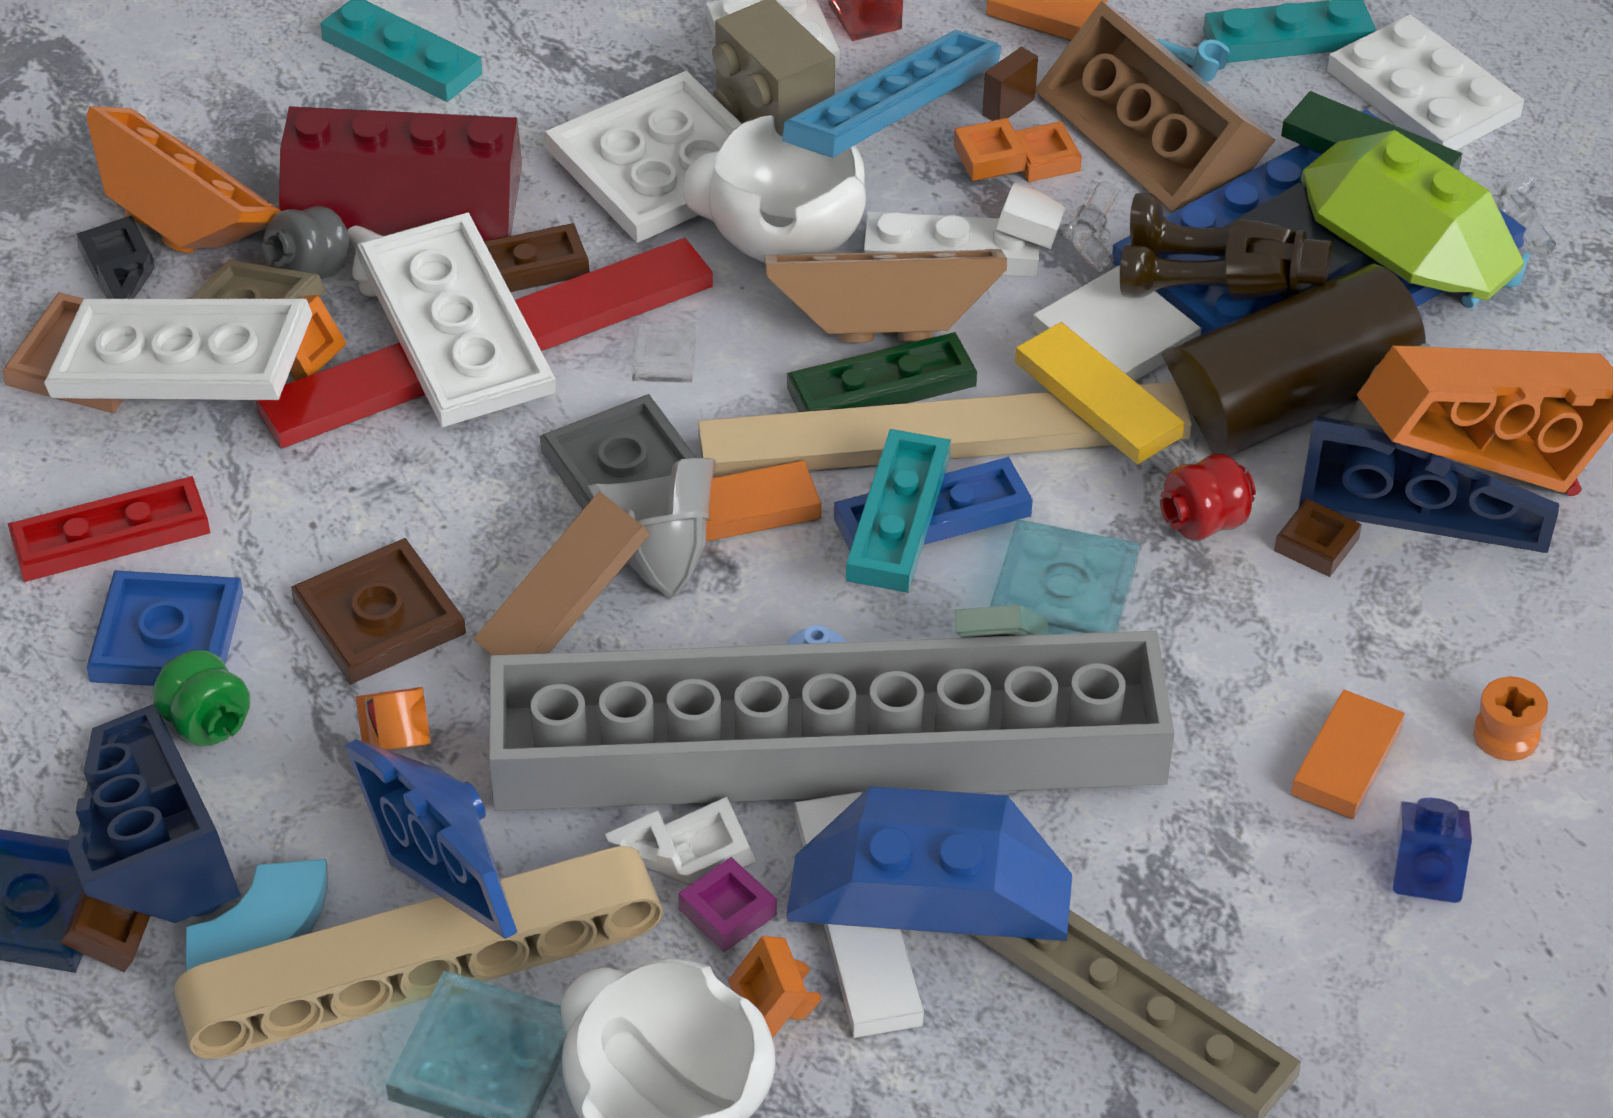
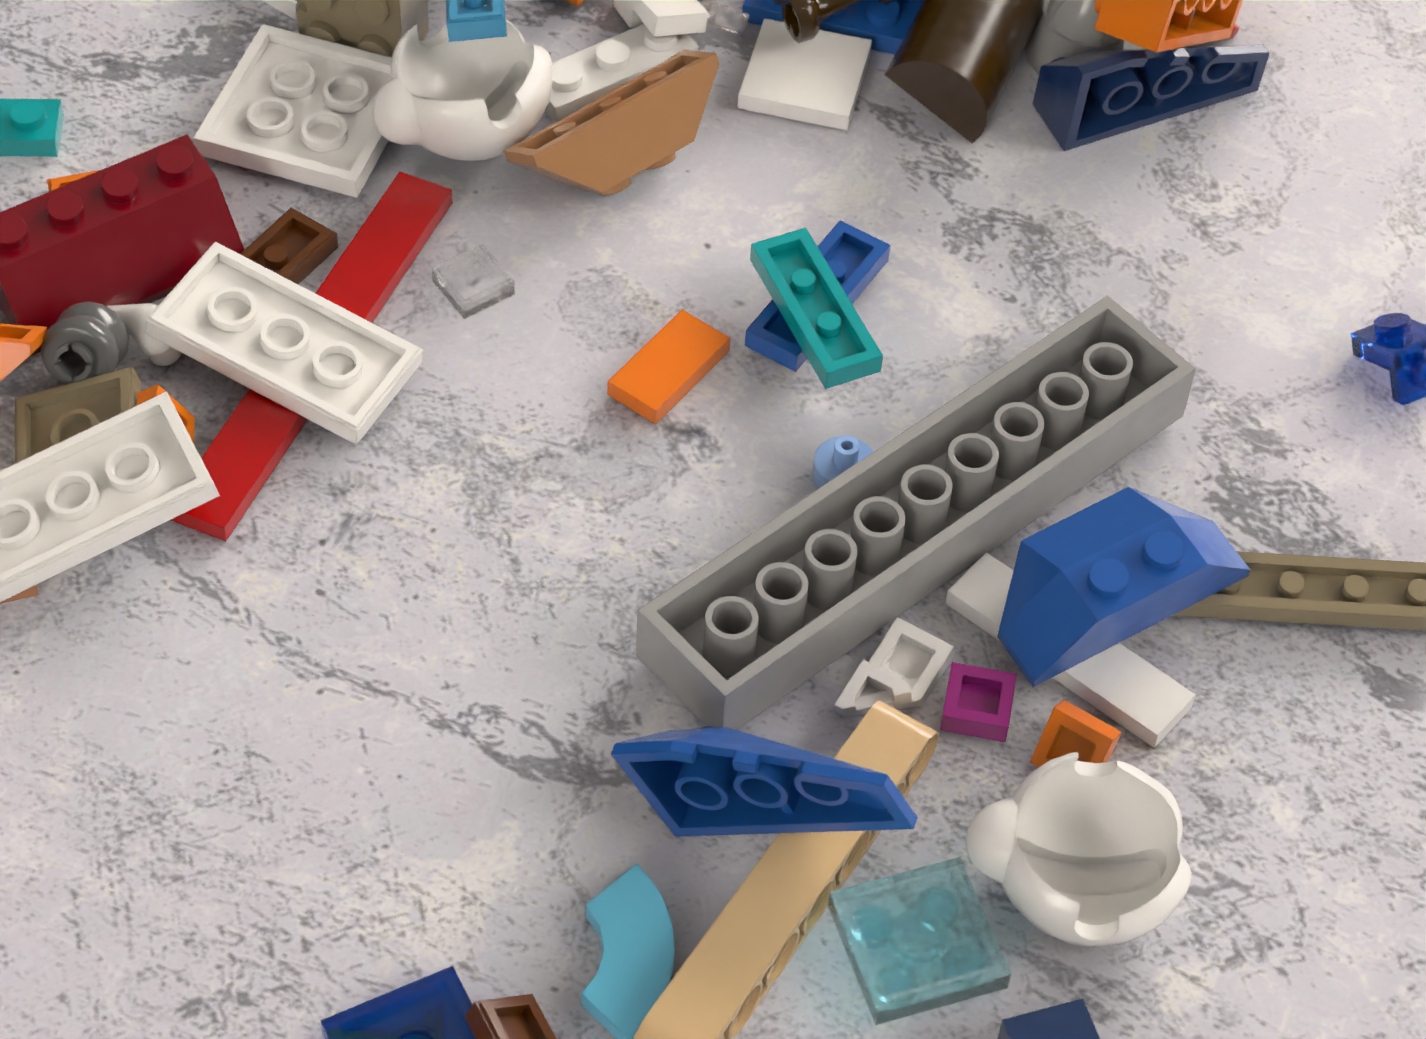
camera: 40 degrees left, 5 degrees up
(108, 528) = (147, 699): red tile -> none
(145, 827) = (464, 923): dark blue wedge -> none
(158, 618) = (292, 756): blue tile -> none
(201, 698) = (401, 793): green piece -> none
(378, 610) = (456, 632): reddish brown tile -> none
(394, 719) = (592, 712): orange leg -> none
(564, 581) = (614, 521): medium nougat tile -> none
(614, 447) = (530, 390): dark grey tile -> none
(675, 516) = (633, 420): light grey helmet -> none
(859, 434) = (722, 247): tan tile -> none
(885, 376) = (667, 211): dark green tile -> none
(999, 621) = (983, 357): sand green tile -> none
(1067, 577) = (964, 302): clear light blue plate -> none
(1099, 392) = (856, 131): yellow tile -> none
(1207, 497) = (1011, 173): red piece -> none
(1317, 537) = (1102, 163): reddish brown tile -> none
(1347, 754) = (1280, 319): orange tile -> none
(1499, 731) = (1363, 228): orange wheel -> none

